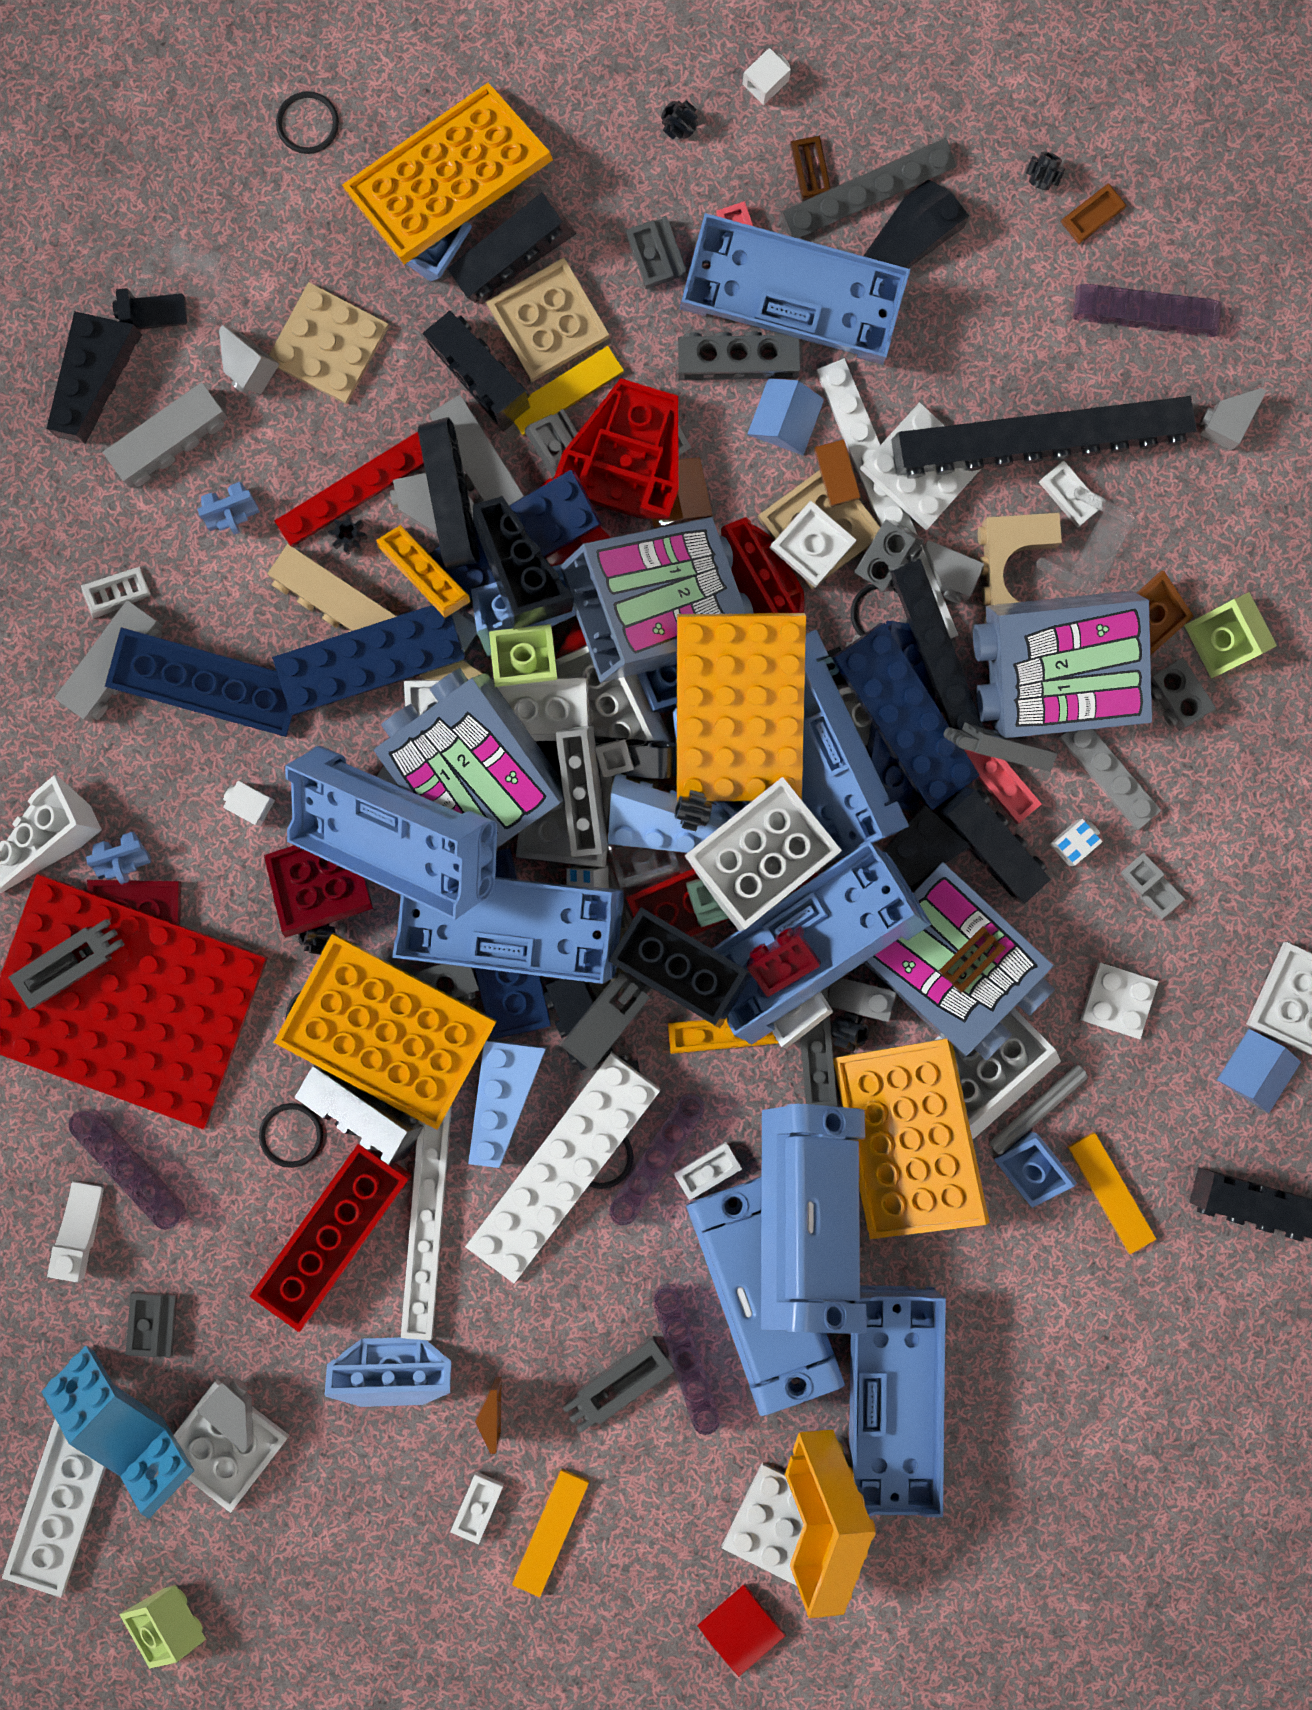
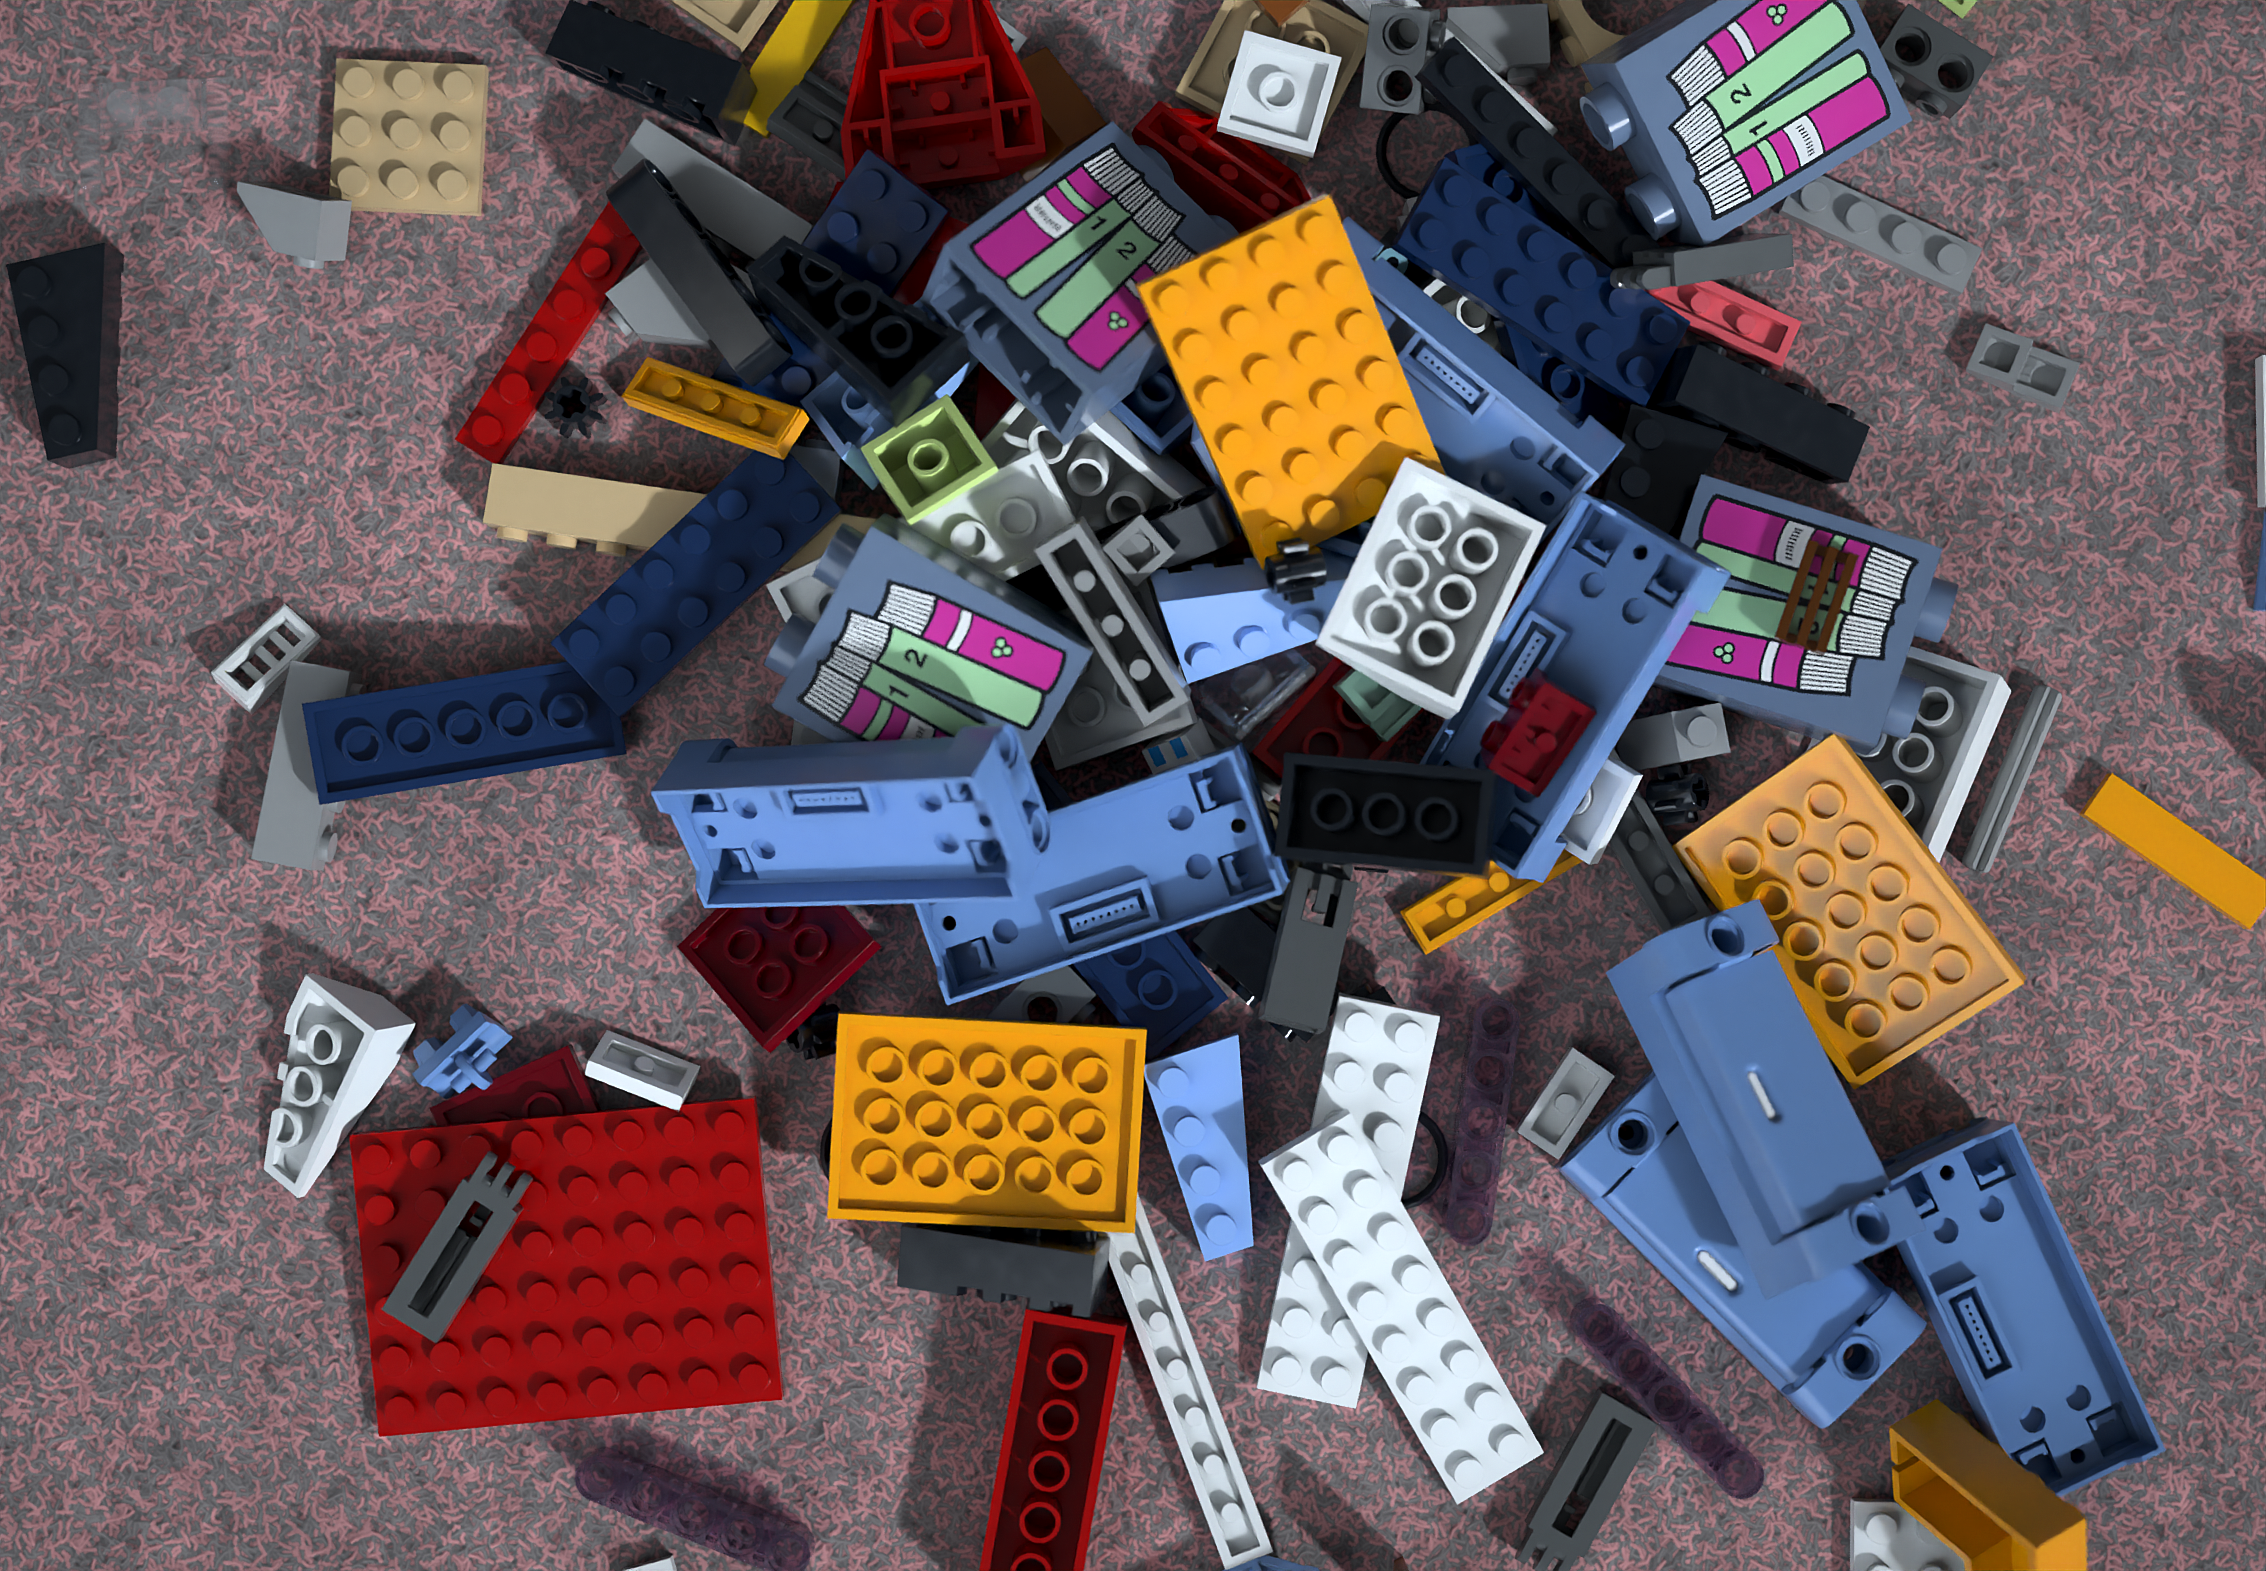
camera: 20 degrees left, 0 degrees up
(150, 311) = (120, 212): black bracket -> none
(165, 436) = (232, 387): light grey brick -> none
(212, 914) = (642, 1070): none -> white plate
(228, 511) = (379, 456): medium blue hips -> none
(247, 803) = (616, 879): white brick -> none
(290, 1164) = (868, 1347): black tyre -> none
(564, 1239) = (1401, 1305): none -> white plate
(1034, 1169) = (2050, 869): medium blue slope -> none
(1076, 841) = (1879, 354): white brick -> none
(1119, 1000) = (2054, 560): white plate -> none

